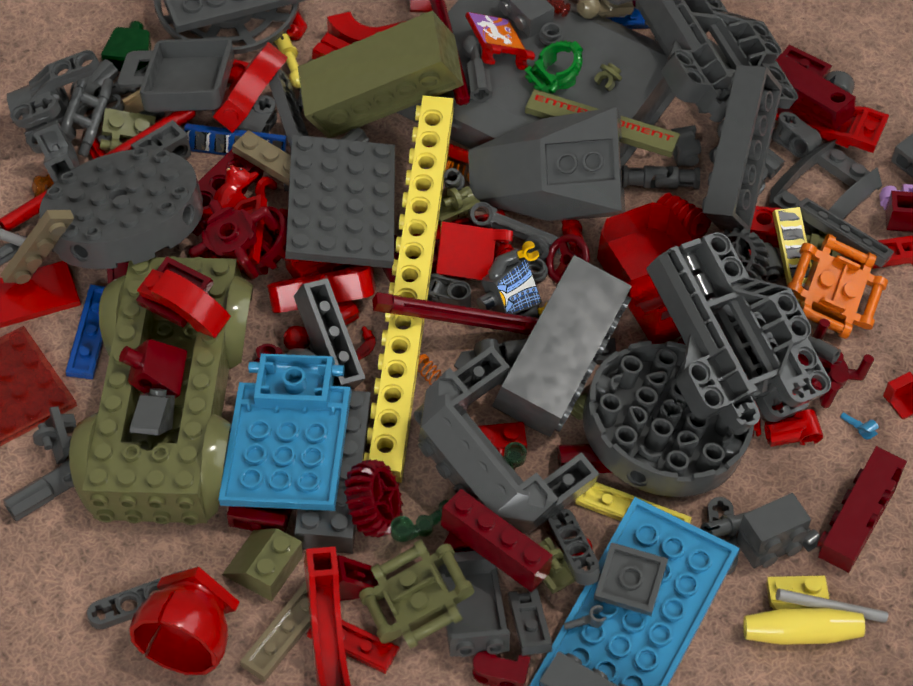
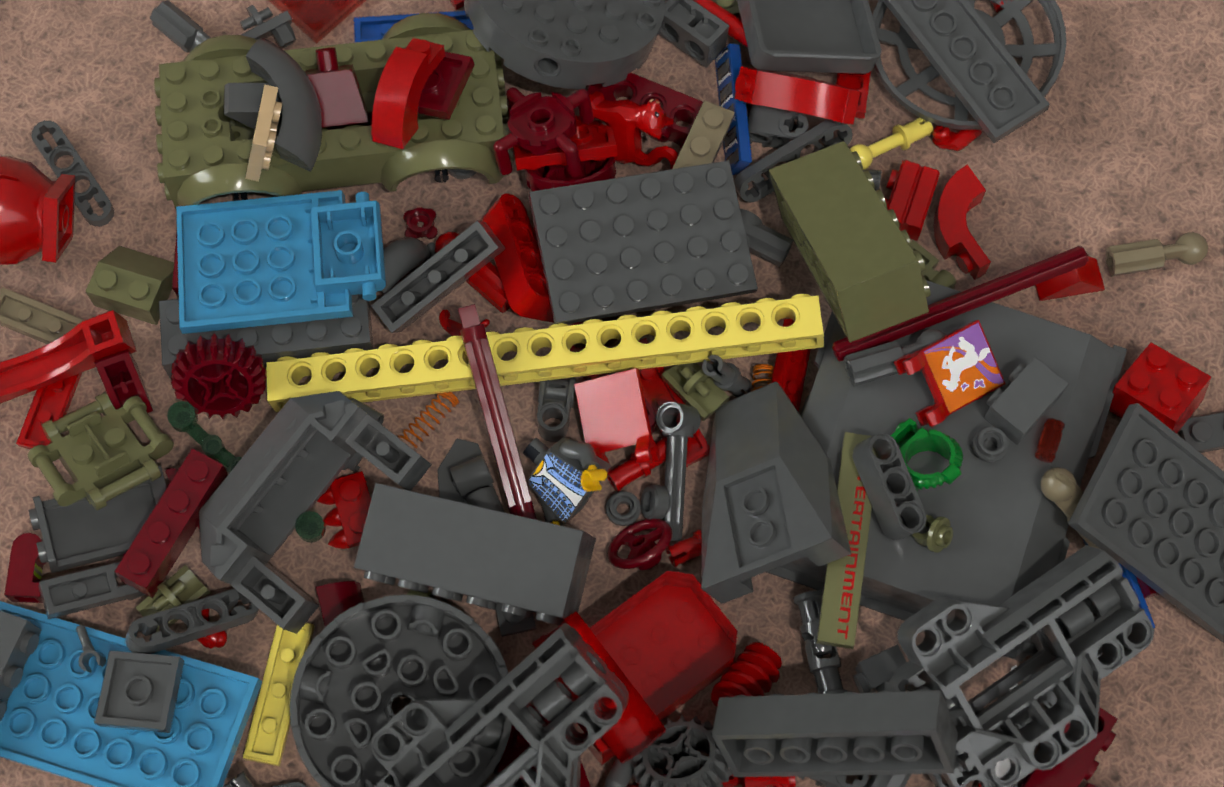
camera: 80 degrees right, 15 degrees up
(162, 376) = (301, 114): none -> dark grey brick
(194, 397) = (264, 133): none -> tan plate
(574, 86) = (887, 504): none -> dark grey beam

